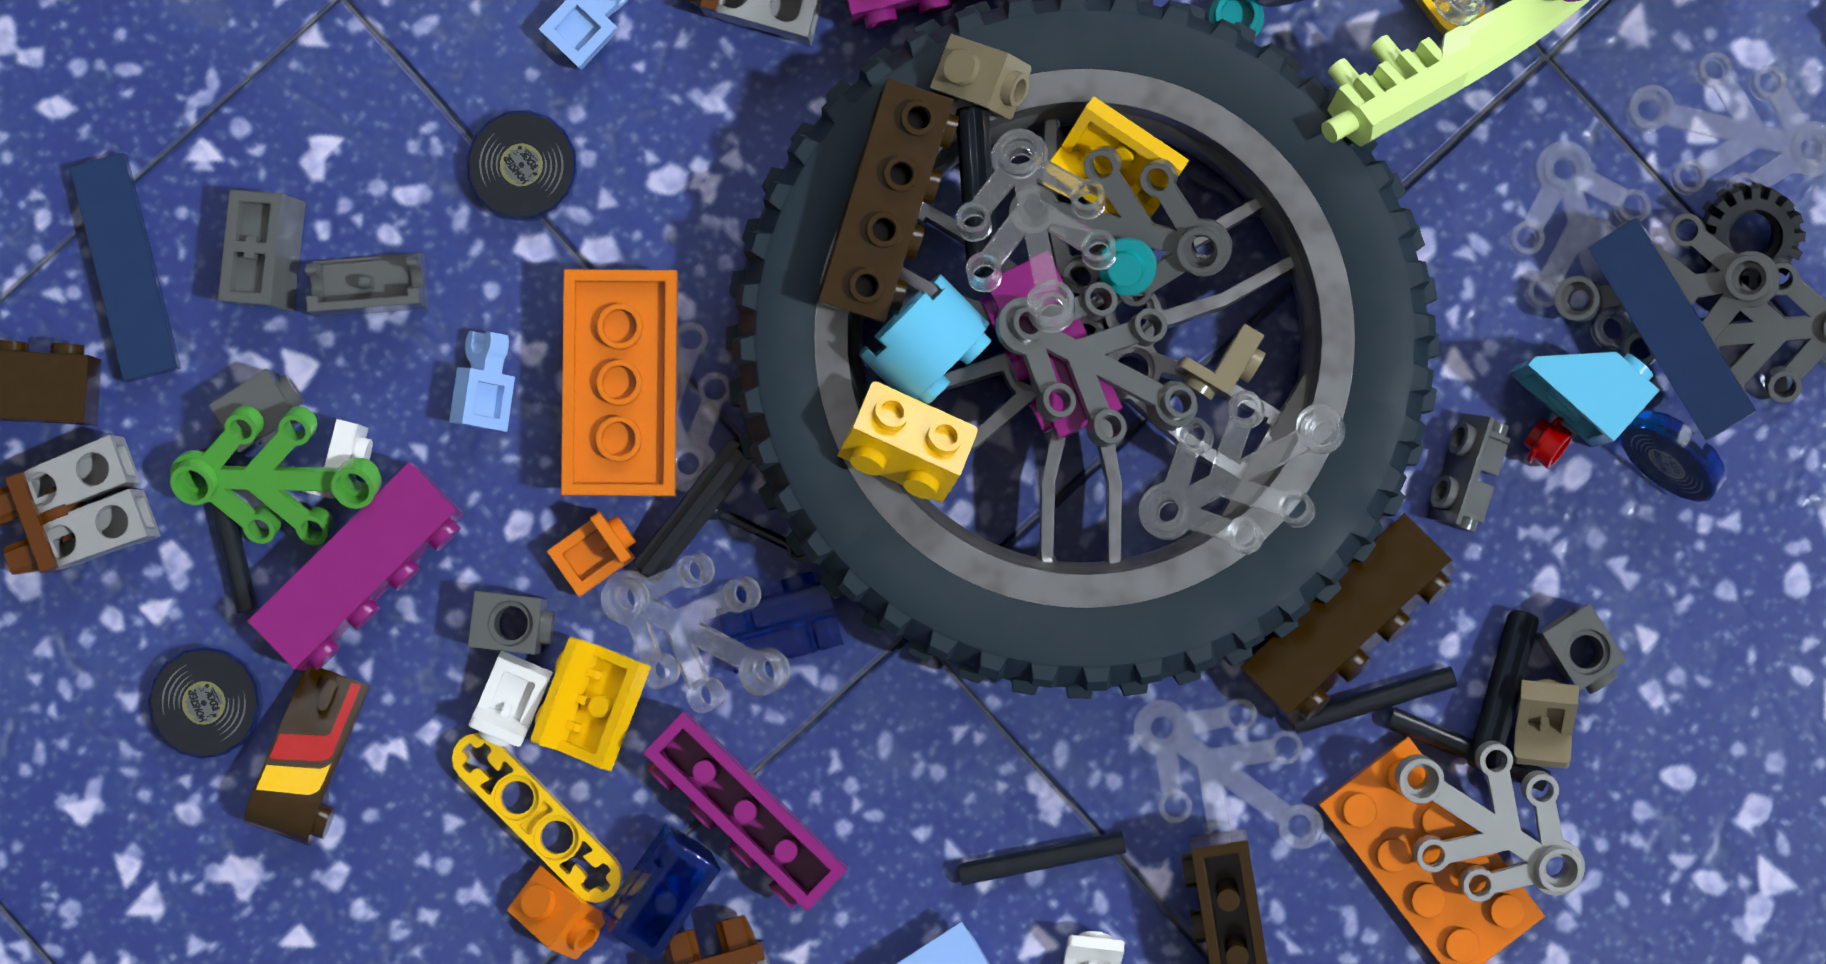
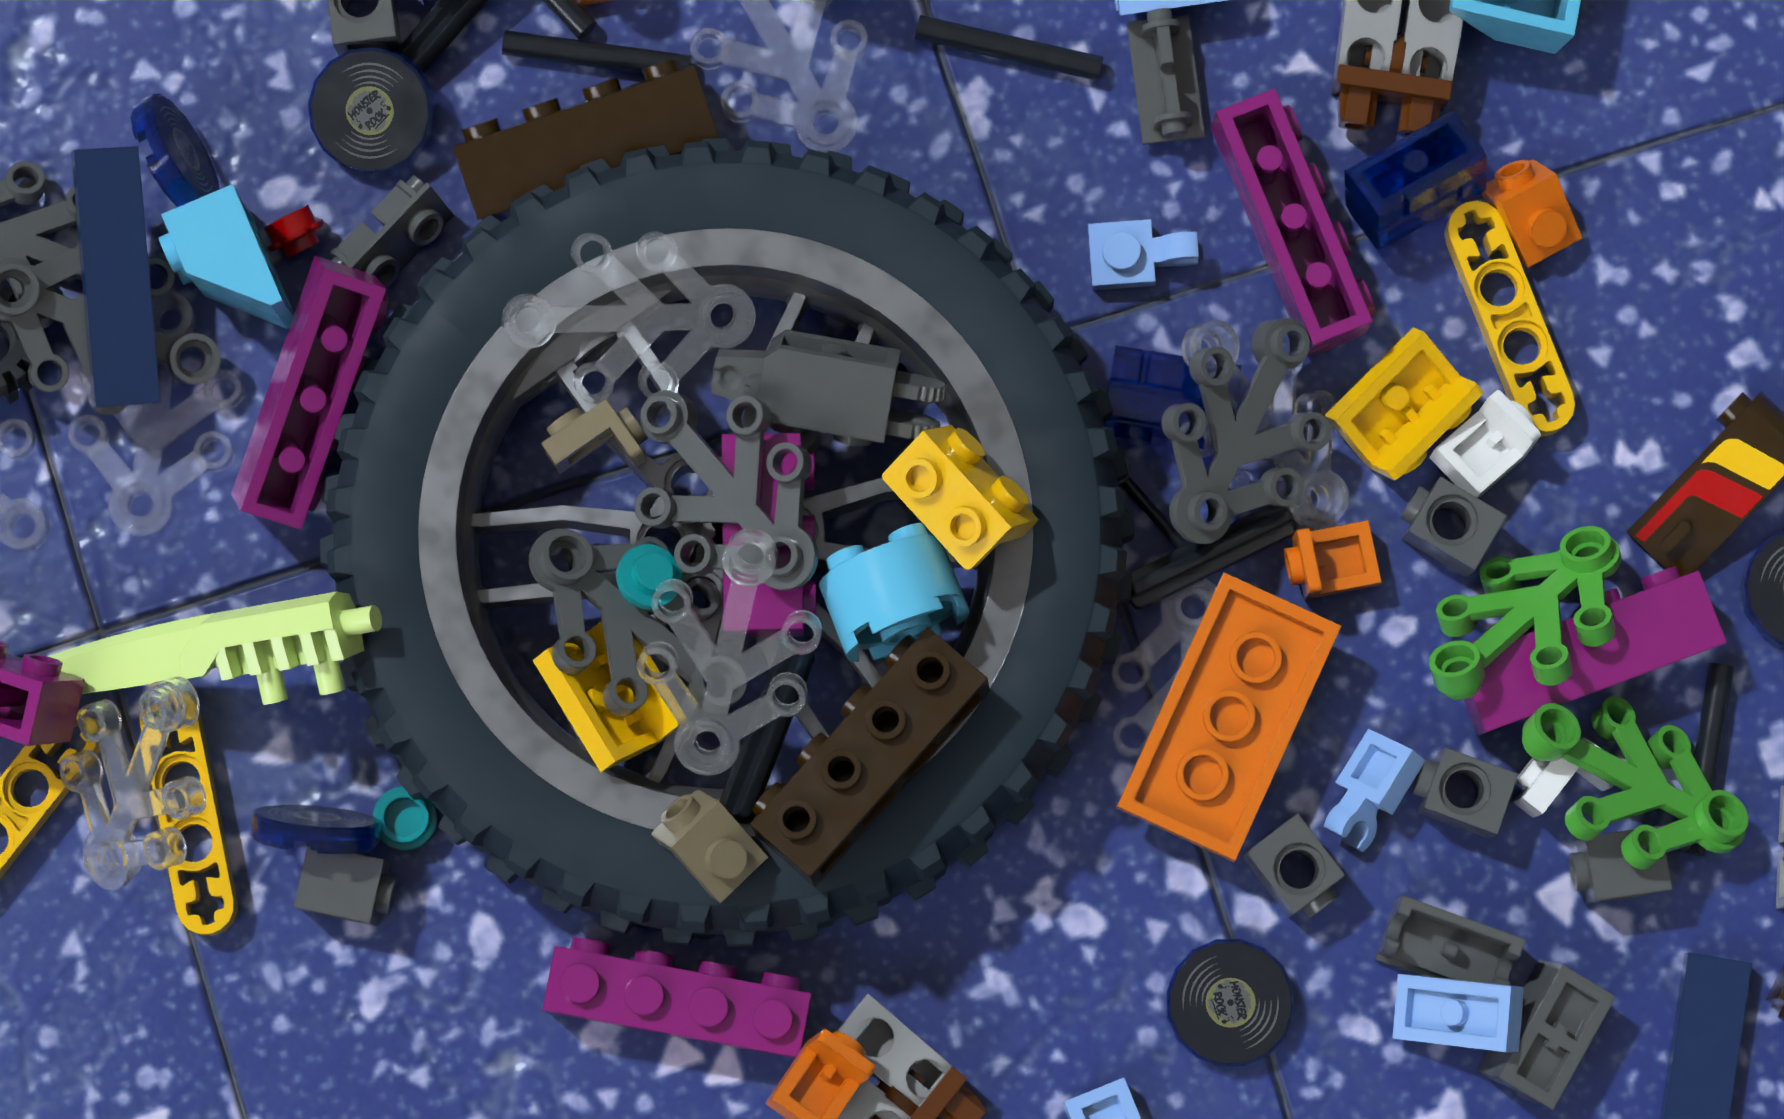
camera: 160 degrees left, 5 degrees down
(337, 233) = (1458, 1013): none -> light blue plate
(383, 408) = (1493, 792): none -> dark grey brick
(418, 578) = (1584, 561): none -> bright green plant
(534, 309) = (1297, 838): none -> dark grey brick
(710, 607) = (1236, 435): none -> dark grey plant
(867, 730) = (1127, 254): none -> light blue plate
(902, 889) = (1165, 78): none -> dark grey hinge
(1053, 489) = (828, 387): none -> dark grey hinge
(1471, 309) = (309, 393): none -> magenta brick
(1533, 568) = (372, 109): none -> black tile

